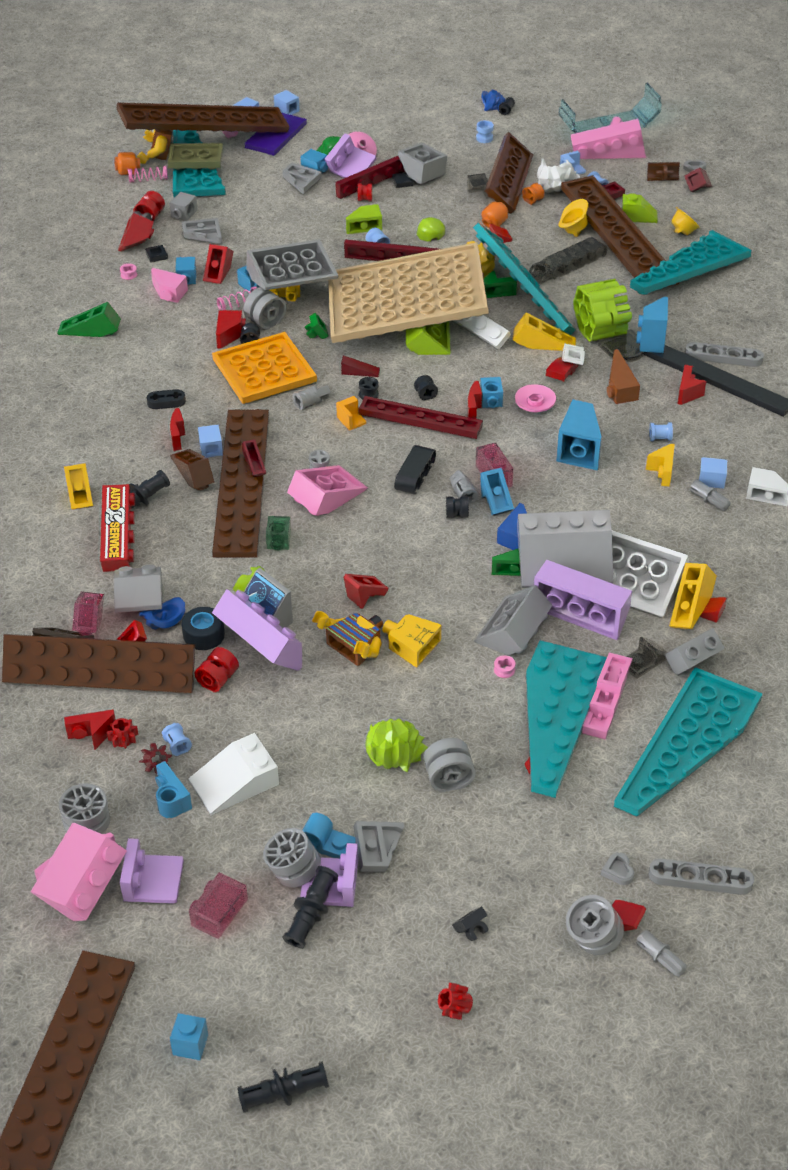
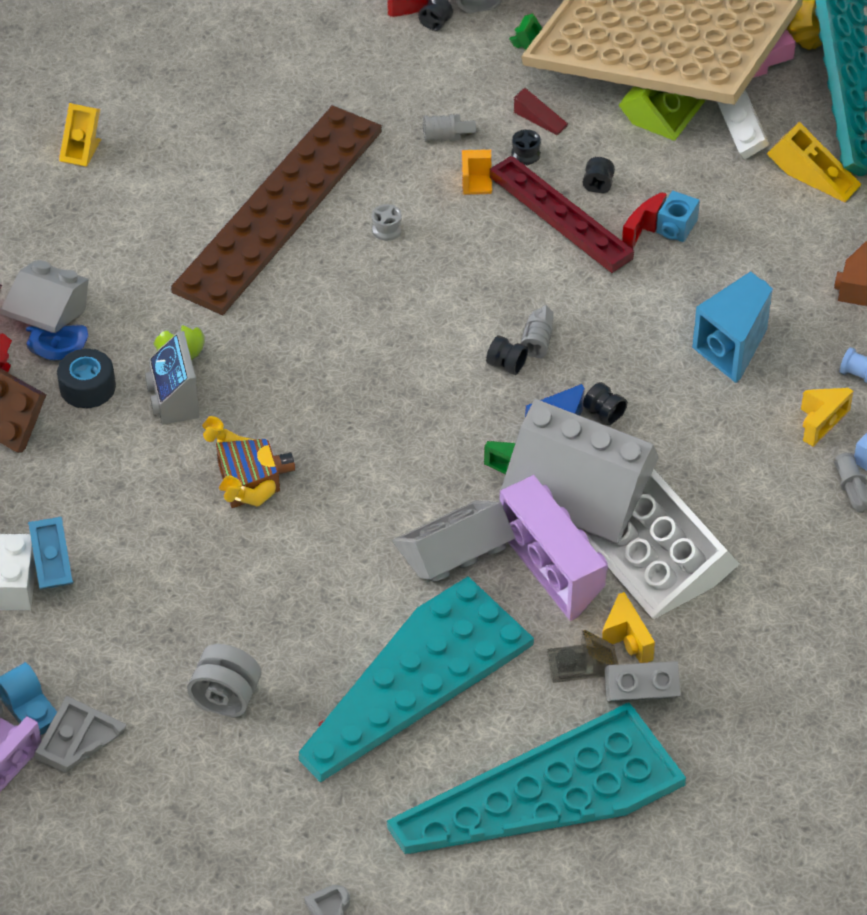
camera: 30 degrees right, 5 degrees up
(116, 527) = (78, 207): red brick -> none
(149, 487) = (139, 174): black piece -> none
(165, 399) = (271, 60): black beam -> none
(177, 429) = (251, 104): red slope -> none
(194, 468) = (229, 167): reddish brown slope -> none
(210, 441) = (276, 138): light blue brick -> none
(216, 669) = (58, 437): red wheel -> none
(253, 458) = (305, 183): dark red piece -> none
(259, 629) = (131, 410): lavender slope -> none
(264, 367) = (420, 65): light orange plate -> none
(275, 739) = (50, 553): none -> dark azure plate
(278, 532) = (264, 295): clear green brick -> none
(324, 488) = (366, 259): bright pink slope -> none
(361, 587) = (309, 408): red slope -> none
(394, 744) = (181, 624): lime hair -> none
(412, 637) = (316, 502): yellow torso -> none
(414, 469) = (495, 281): black beam -> none
(470, 921) = (105, 879): black tile -> none
(491, 457) = (595, 321): clear pink brick -> none
(496, 491) = (568, 355): dark azure slope -> none
(499, 286) = (803, 66): green slope -> none
(500, 662) = (402, 582): bright pink bush -> none
(534, 506) = (606, 404): none -> black wheel
(535, 398) = (729, 248): bright pink dish -> none
(560, 369) = (802, 219): red slope -> none
(573, 354) = (830, 207): white slope -> none
(607, 696) = (495, 684): bright pink slope -> none
(656, 624) = (626, 626): none -> yellow slope
(693, 595) = (707, 606): yellow slope -> none
(714, 609) = (723, 637): red slope -> none

